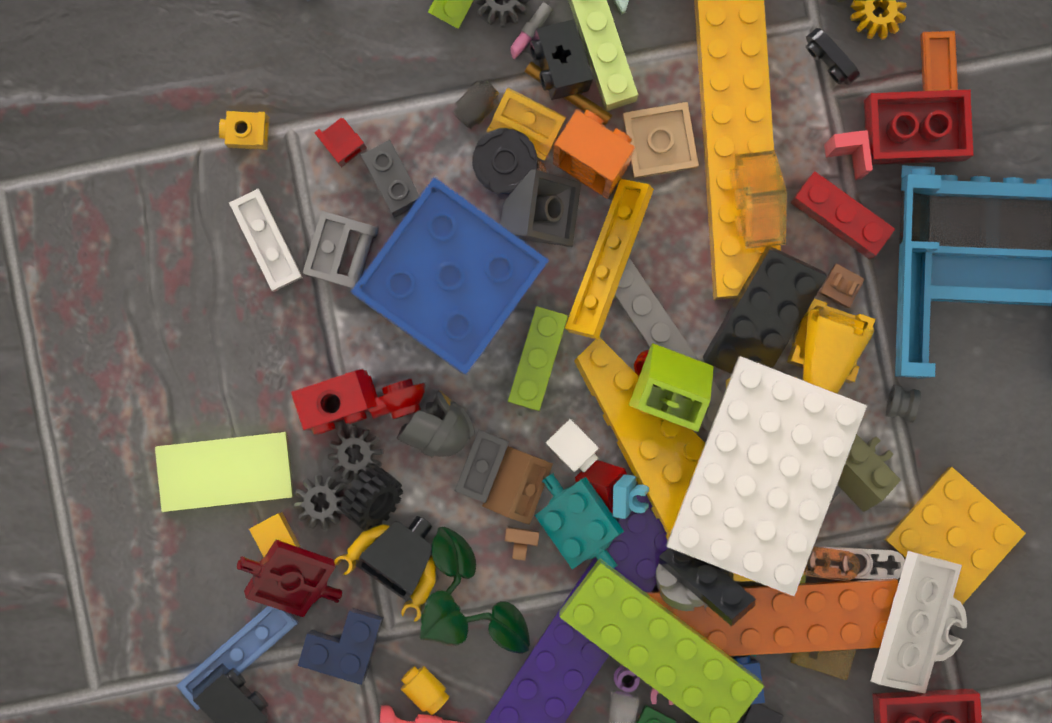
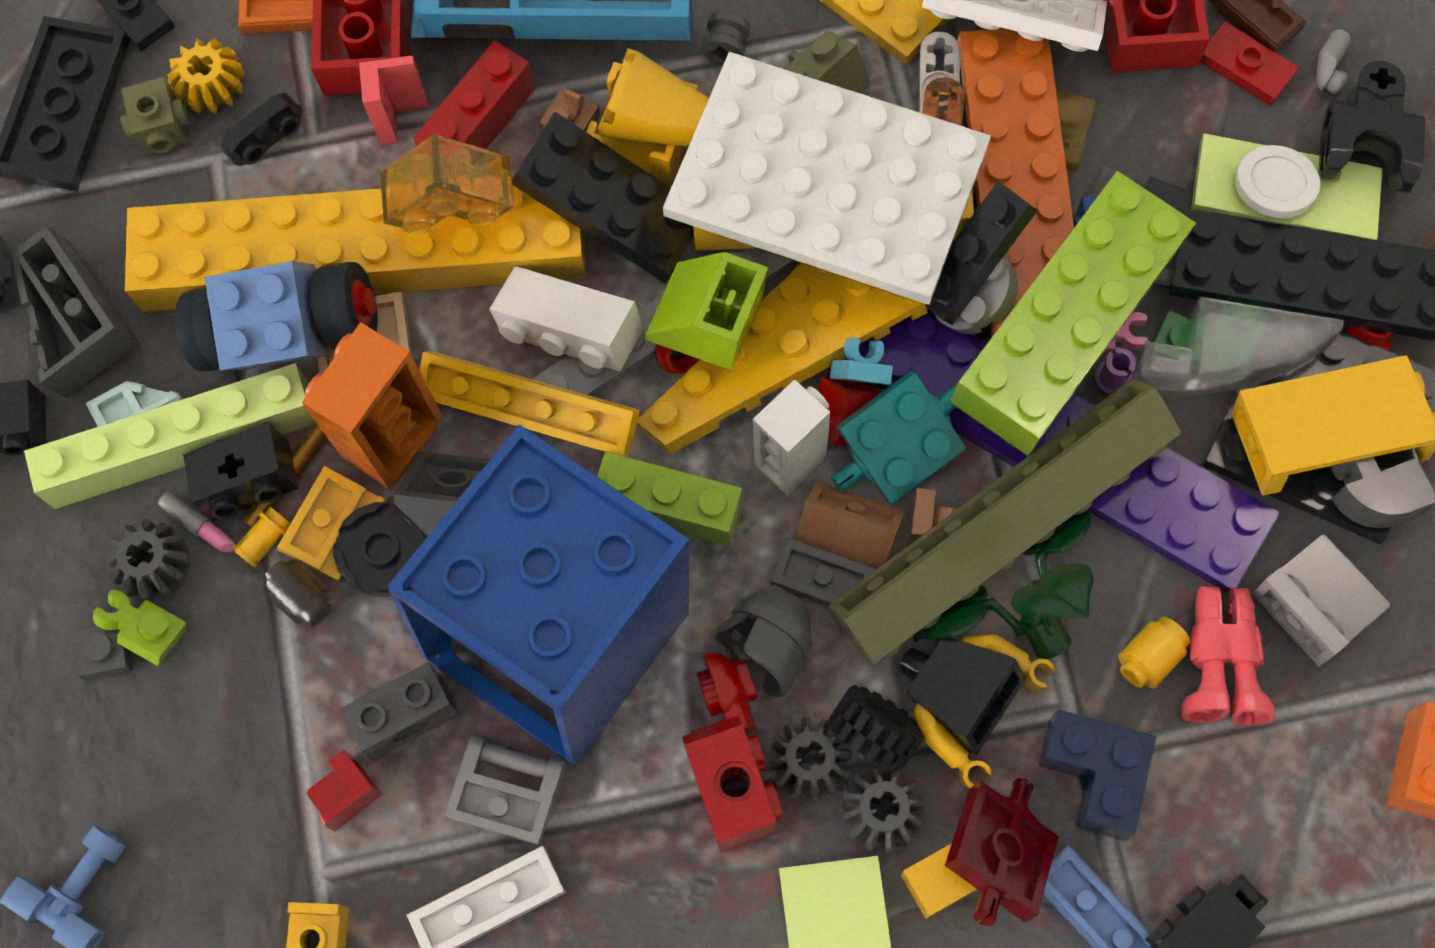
camera: 90 degrees left, 15 degrees down
(513, 593) = (1005, 520): none -> olive brick
(518, 77) = (262, 536): none -> yellow pin
(670, 79) = (273, 314): none -> brick
(671, 286) = (567, 319): none -> white brick

